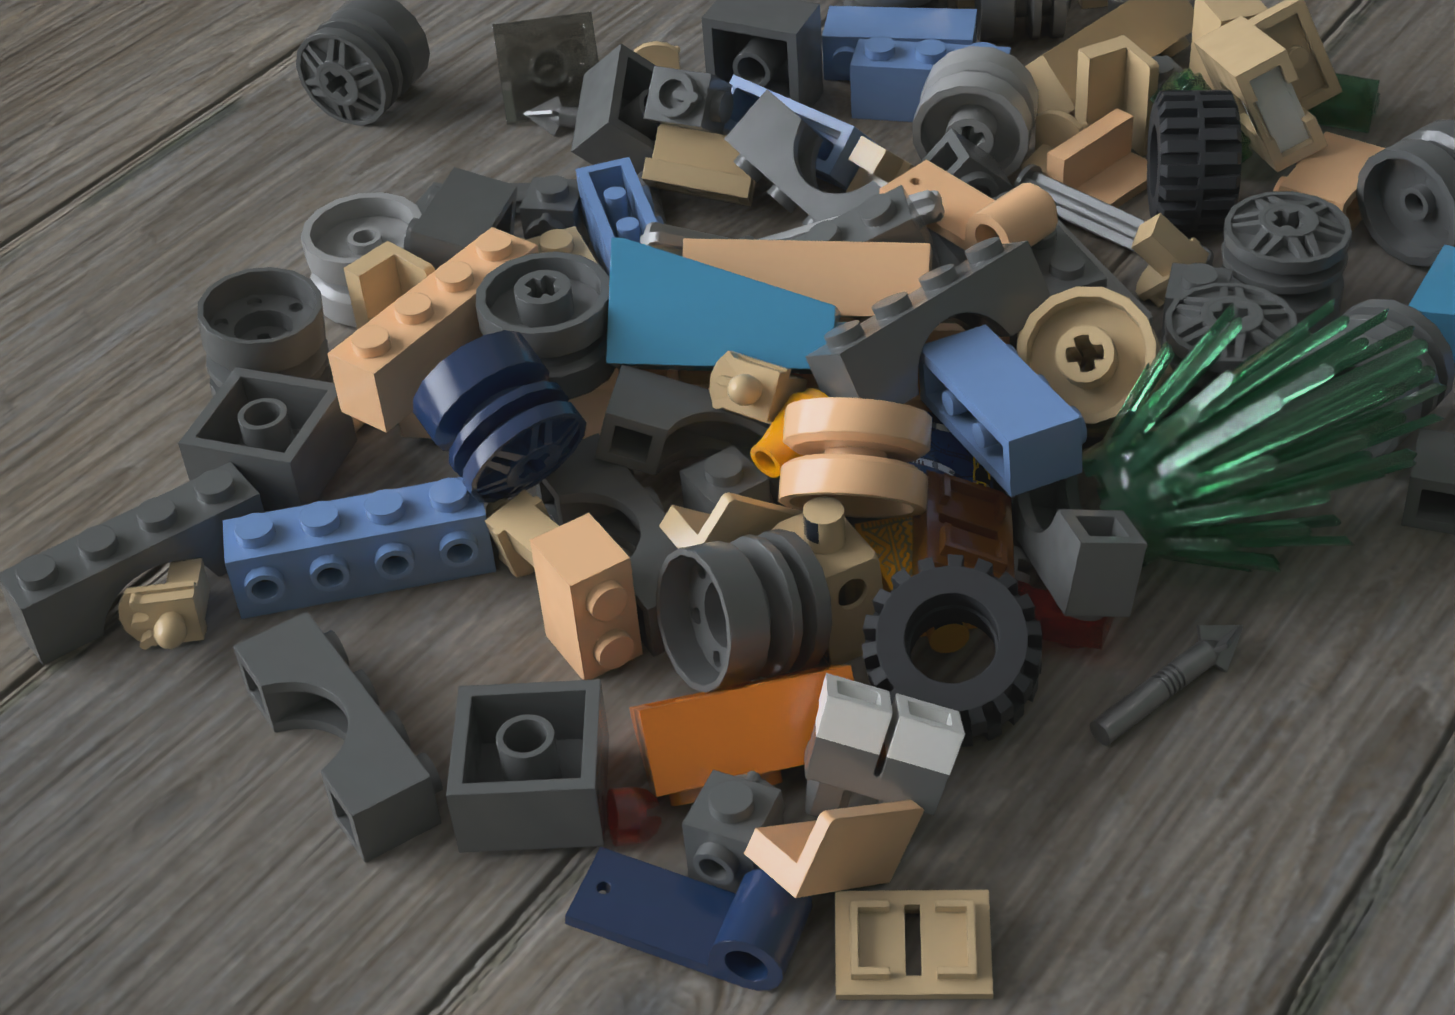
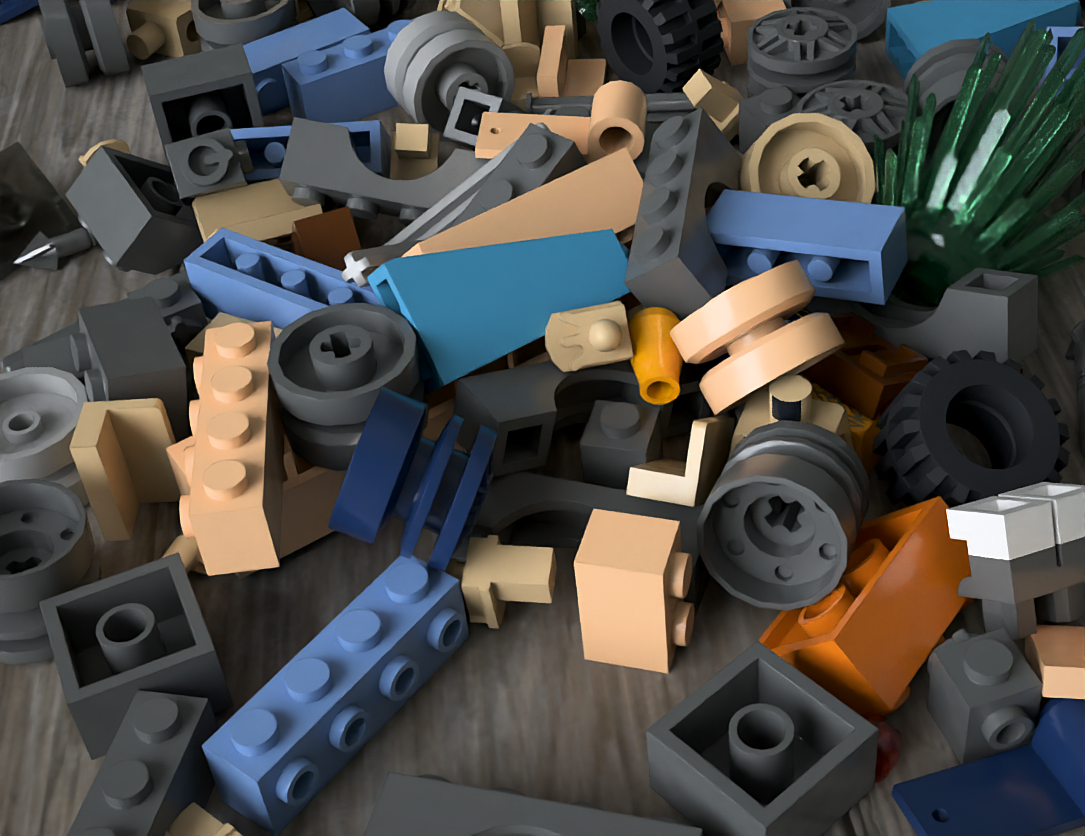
camera: 40 degrees left, 0 degrees up
(725, 211) = (326, 237): none -> reddish brown slope

